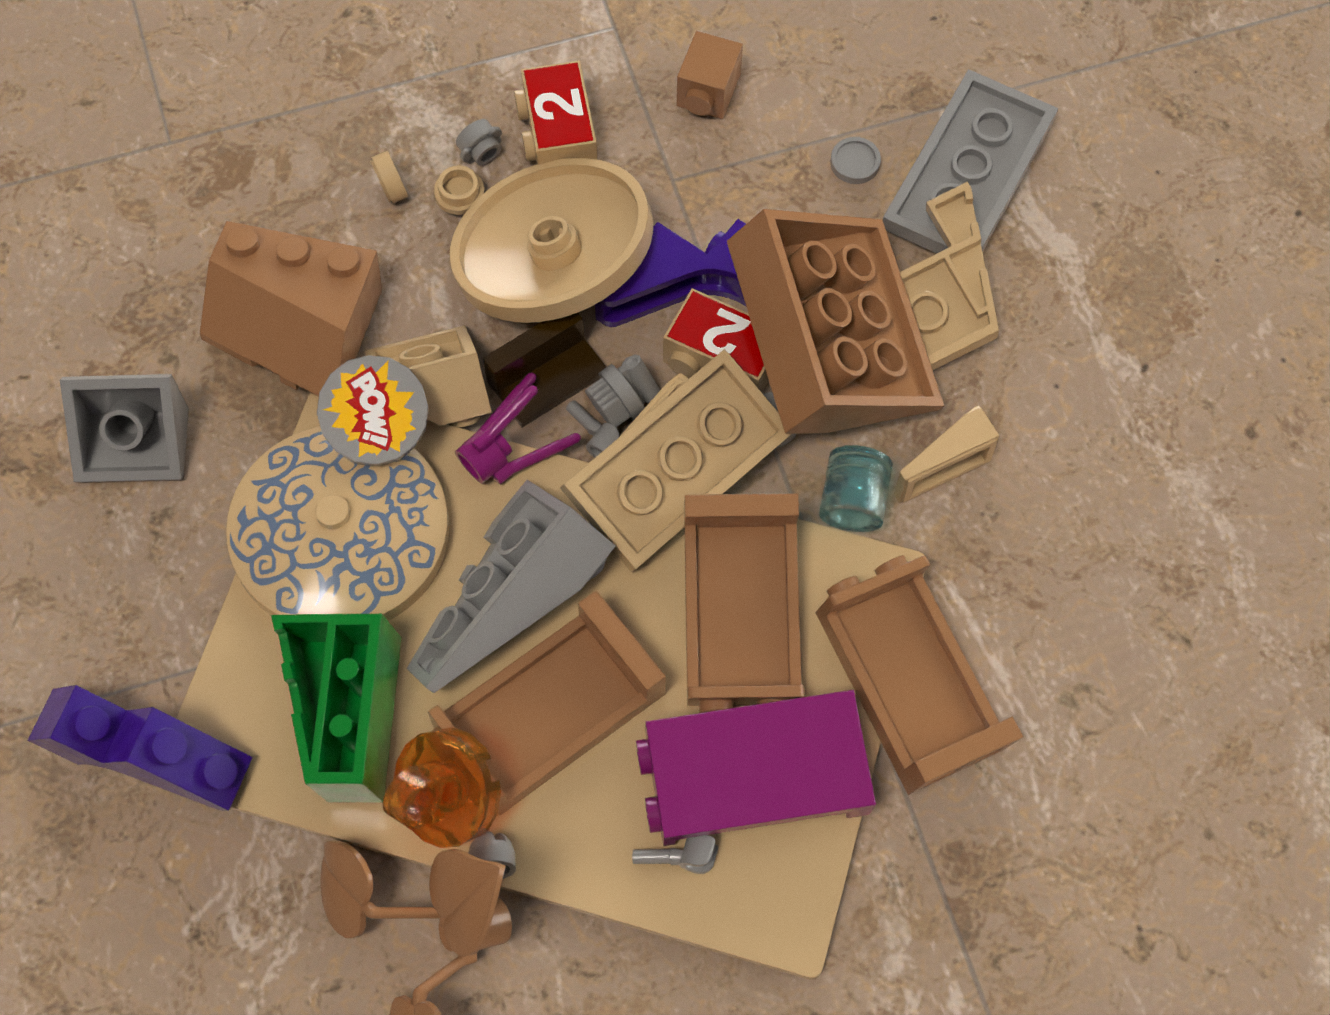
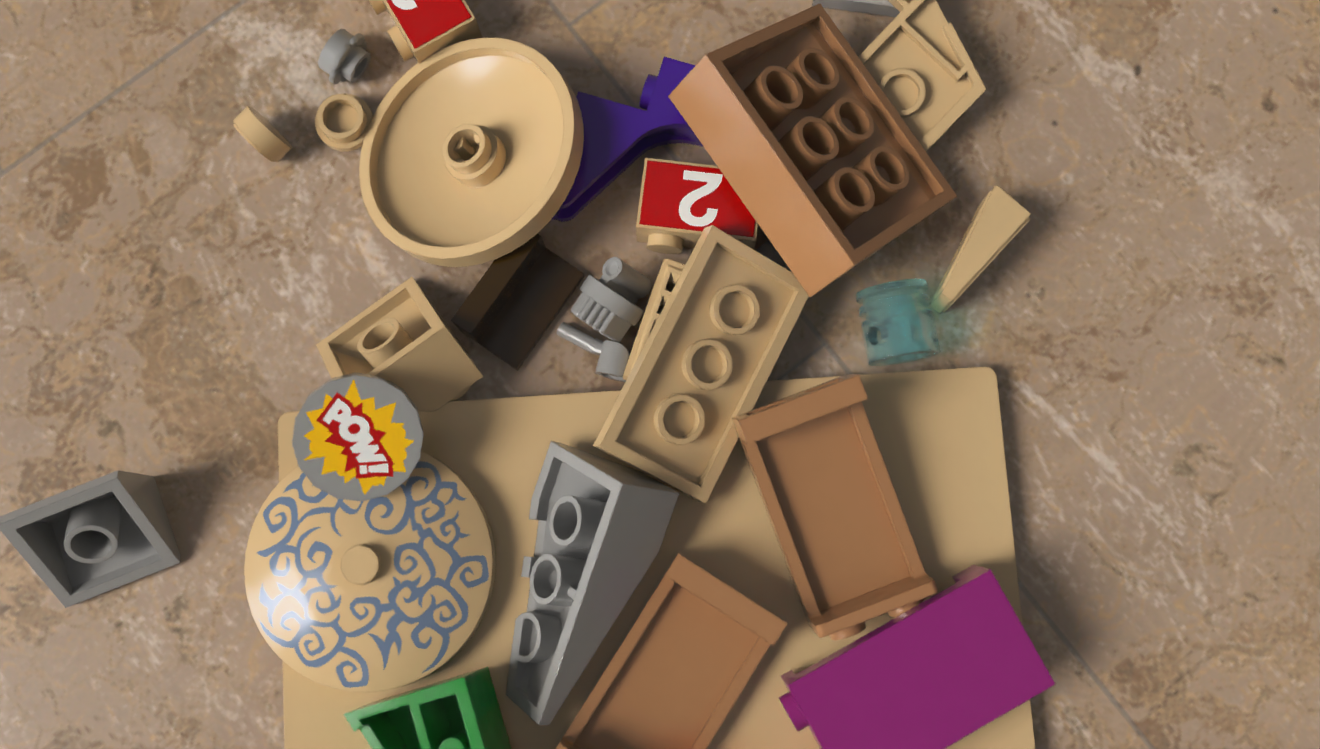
camera: 15 degrees left, 15 degrees up
(289, 302) = (214, 328): medium nougat wedge -> none
(487, 449) = (493, 423): magenta plant -> none
(912, 674) = (1034, 515): medium nougat panel -> none

